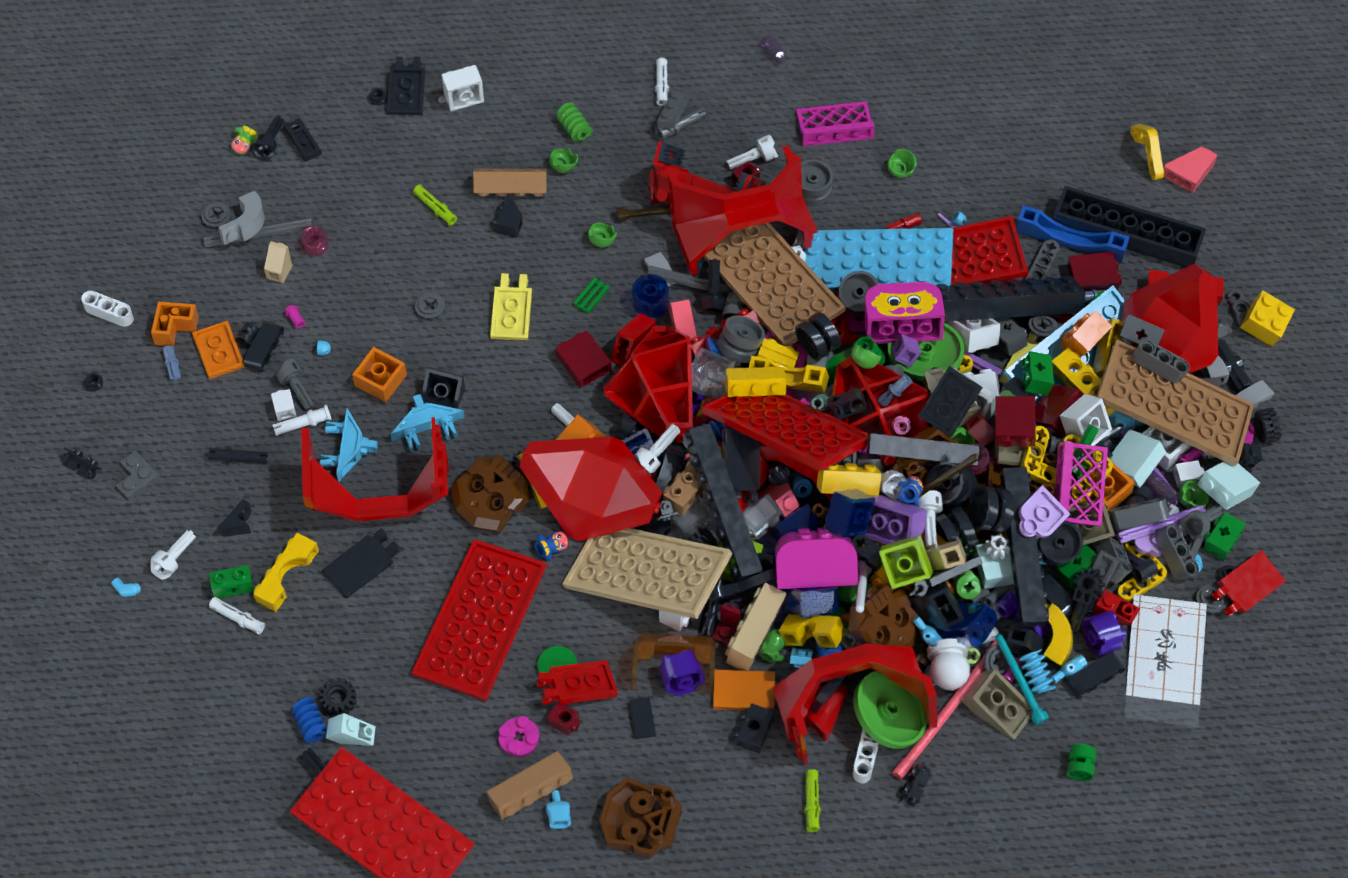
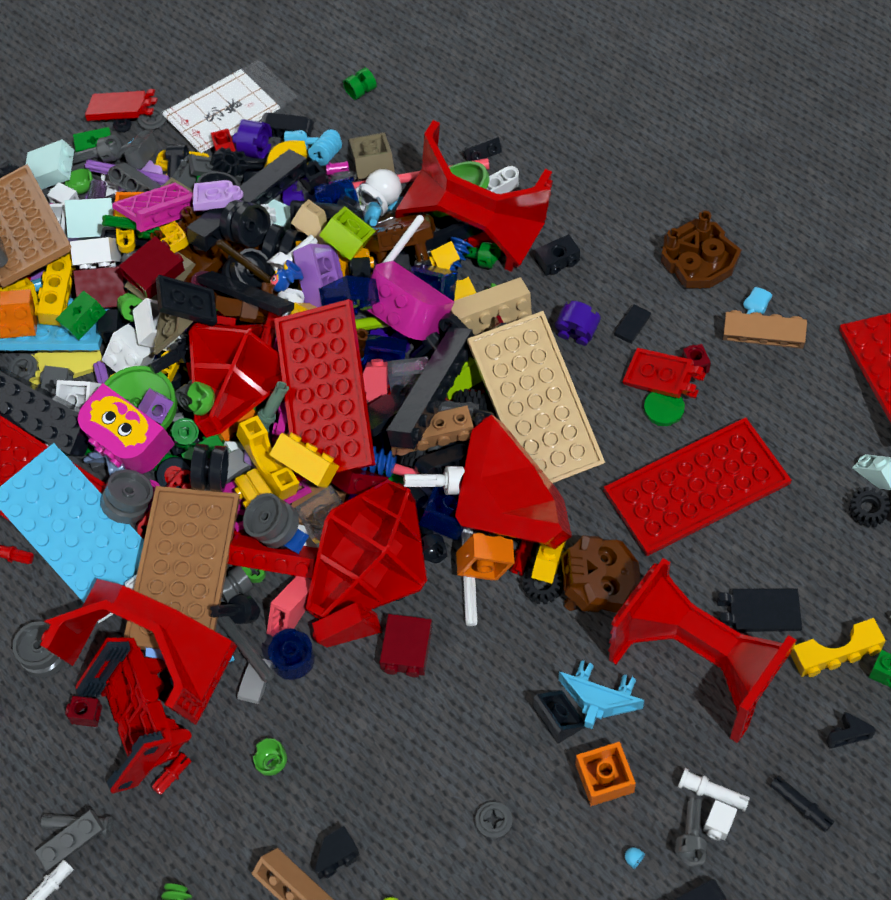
camera: 135 degrees left, 0 degrees up
(352, 446) = (686, 724): medium azure connector -> none
(511, 310) = (421, 752): light yellow tile -> none
(522, 726) = (743, 366): dark pink plate -> none
(552, 544) = (584, 499): blue animal -> none
(559, 156) = (223, 867): bright green hair -> none
(605, 289) = (353, 695): green tile -> none
(624, 214) = (225, 766): dark brown piece -> none
(670, 644) = (581, 360): clear orange windscreen -> none
(740, 688) = (545, 291): orange tile -> none
(763, 149) = (50, 727): white piece -> none
(800, 656) = (481, 261): medium azure plate -> none
(812, 807) = (568, 181): lime pin -> none
(846, 405) = (257, 366): black piece -> none
(894, 390) = (206, 355): sand blue axle -> none
(1038, 714) = (352, 130): teal piece -> none

